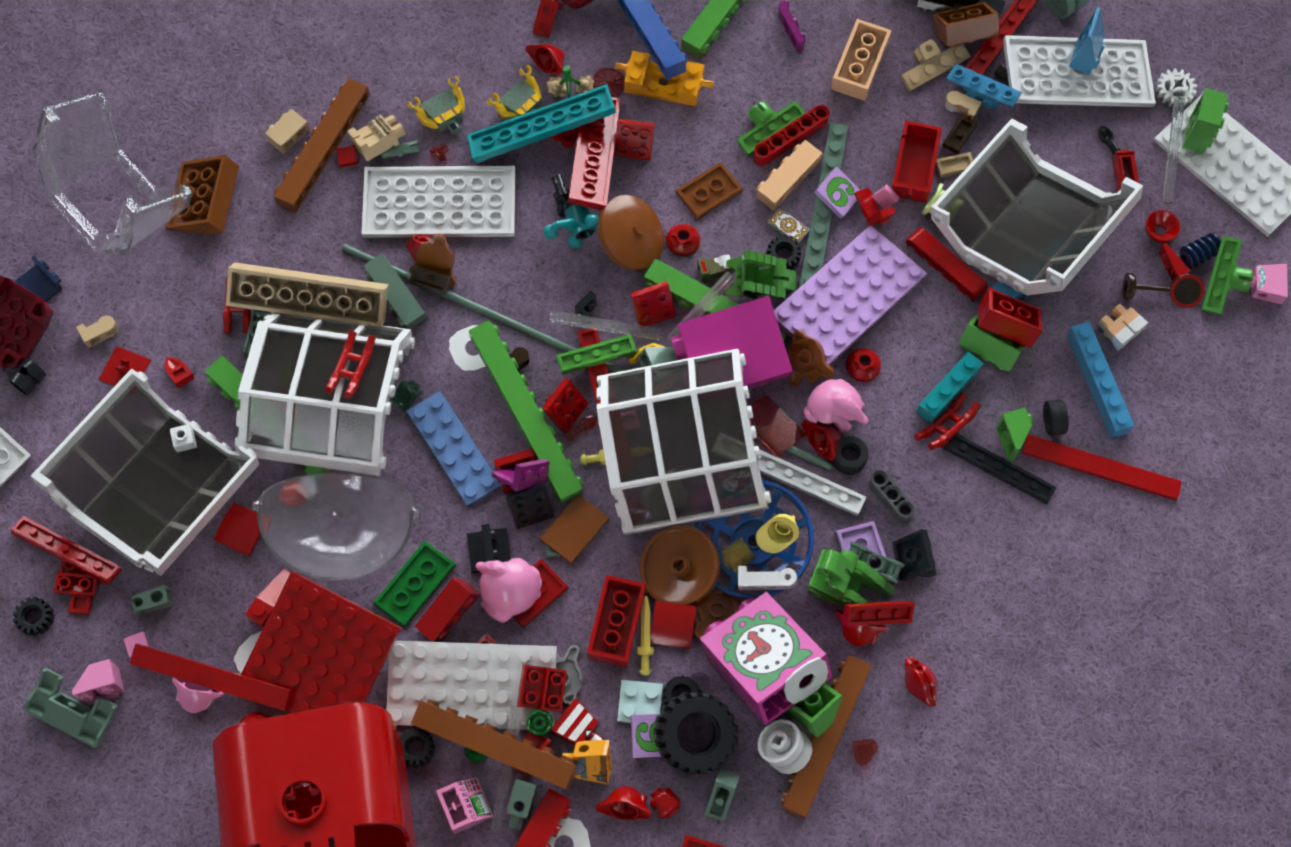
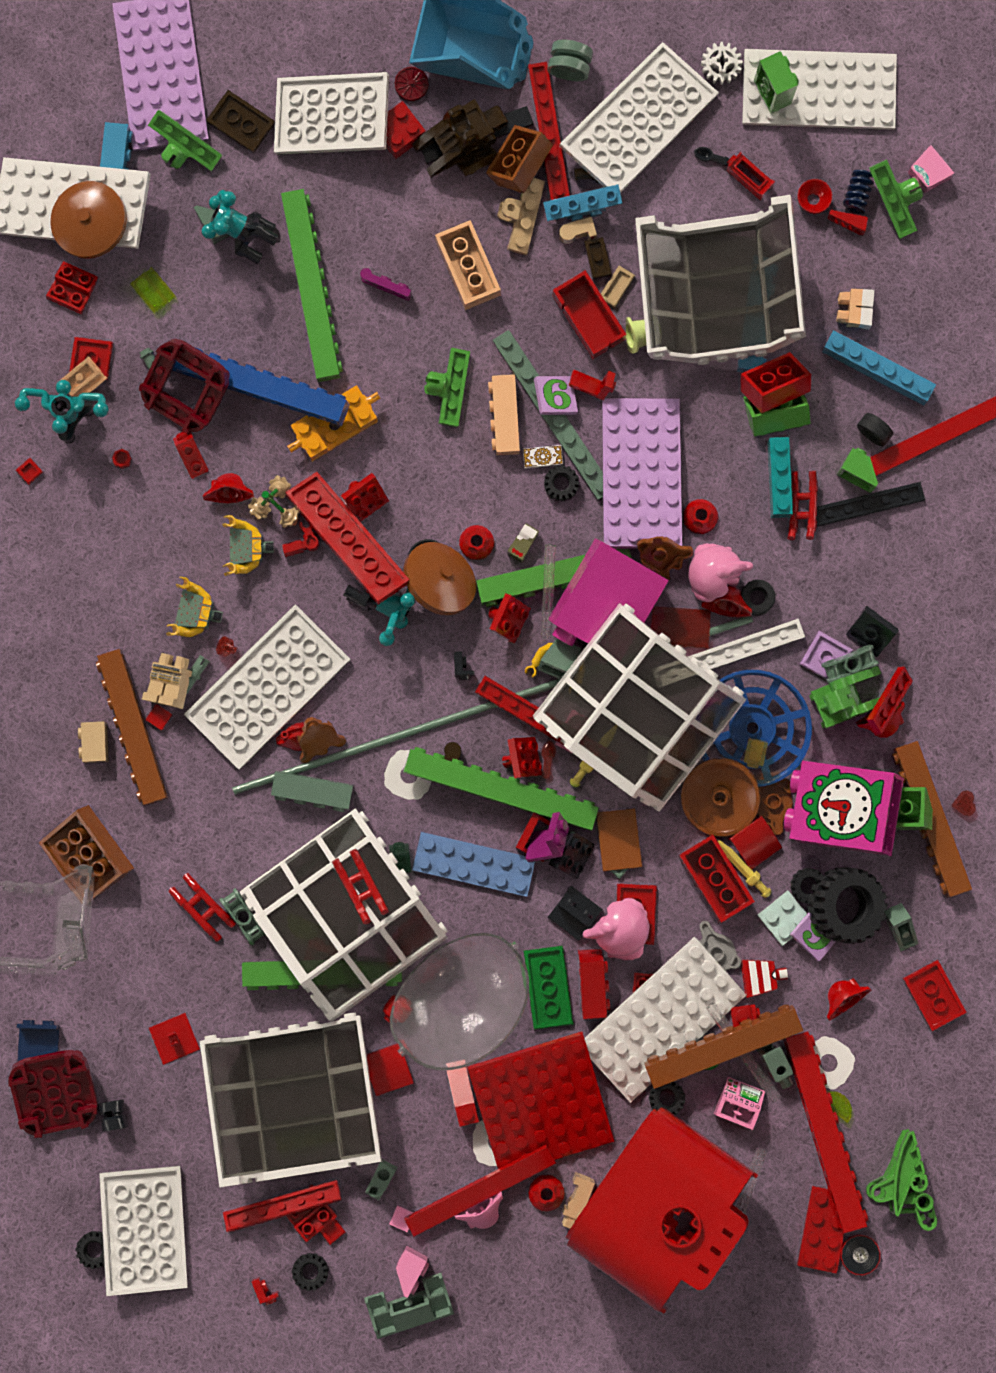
camera: 45 degrees left, 15 degrees up
(99, 331) = (127, 1026): tan leg -> none
(178, 371) = (216, 1003): red plate -> none
(187, 441) = (280, 1041): white plate -> none
(306, 294) = (256, 858): tan brick -> none
(430, 279) = (327, 755): dark brown plate -> none
(534, 727) = (740, 1004): green plate -> none
(541, 123) = (284, 553): teal plate -> none
(541, 688) = (715, 976): red slope -> none
(592, 760) = (795, 991): light orange torso -> none
(596, 354) = (507, 696): bright green tile -> none
(605, 325) = (491, 667): clear axle -> none
(612, 78) = (293, 465): dark red wheel -> none
(664, 802) = (869, 970): red head -> none
(709, 190) = (456, 483): dark orange tile -> none
(757, 282) = (560, 525): bright green piece -> none
(766, 580) = (806, 739): white leg -> none
(777, 533) = (771, 710): light yellow piece -> none
(785, 746) = (914, 855): white wheel -> none
(792, 690) = (896, 788): white piece -> none
(794, 128) = (475, 370): red beam -> none
(886, 197) = (593, 365): bright pink tile -> none
(890, 487) = (823, 597): dark grey beam -> none
(920, 681) = (956, 717): red hat -> none
(947, 263) = (694, 377): red beam -> none
(1089, 45) = (632, 96): dark azure slope -> none
(1173, 151) = (768, 123): clear axle -> none
(1185, 290) = (875, 238): dark brown piece -> none

